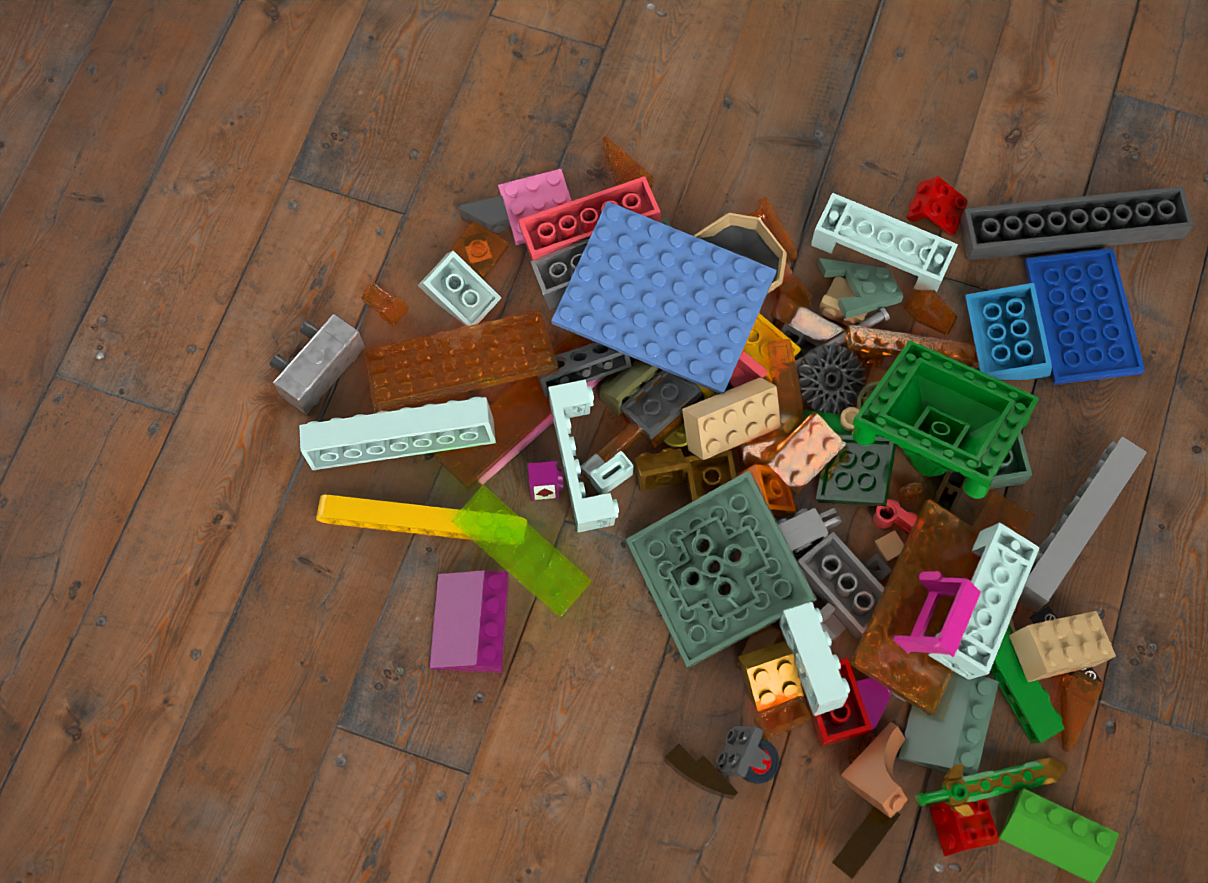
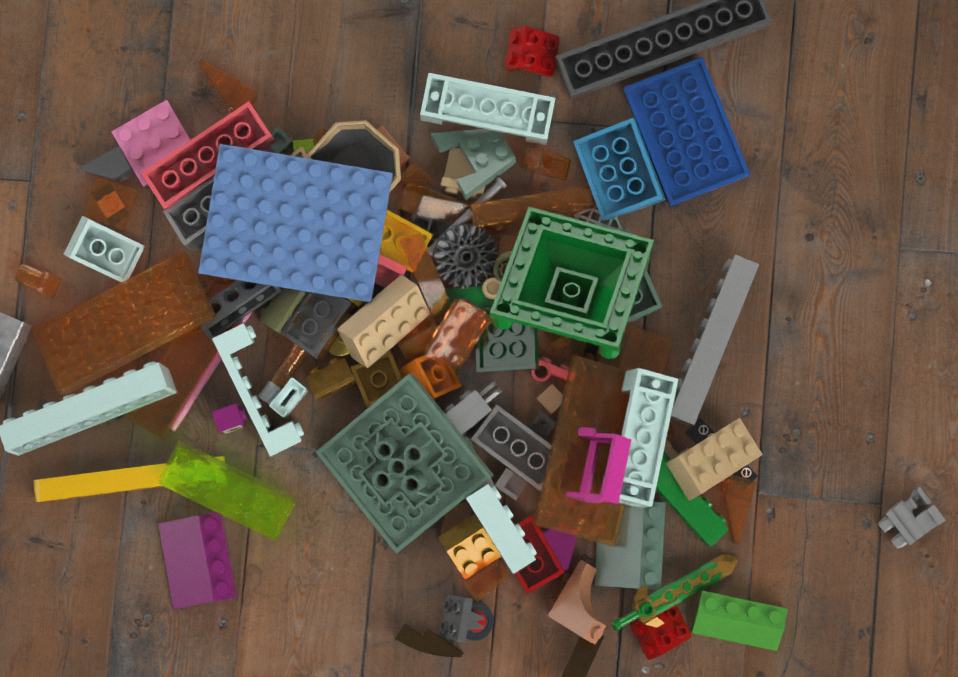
camera: 15 degrees left, 15 degrees up
(767, 213) = (372, 100): clear orange piece -> none

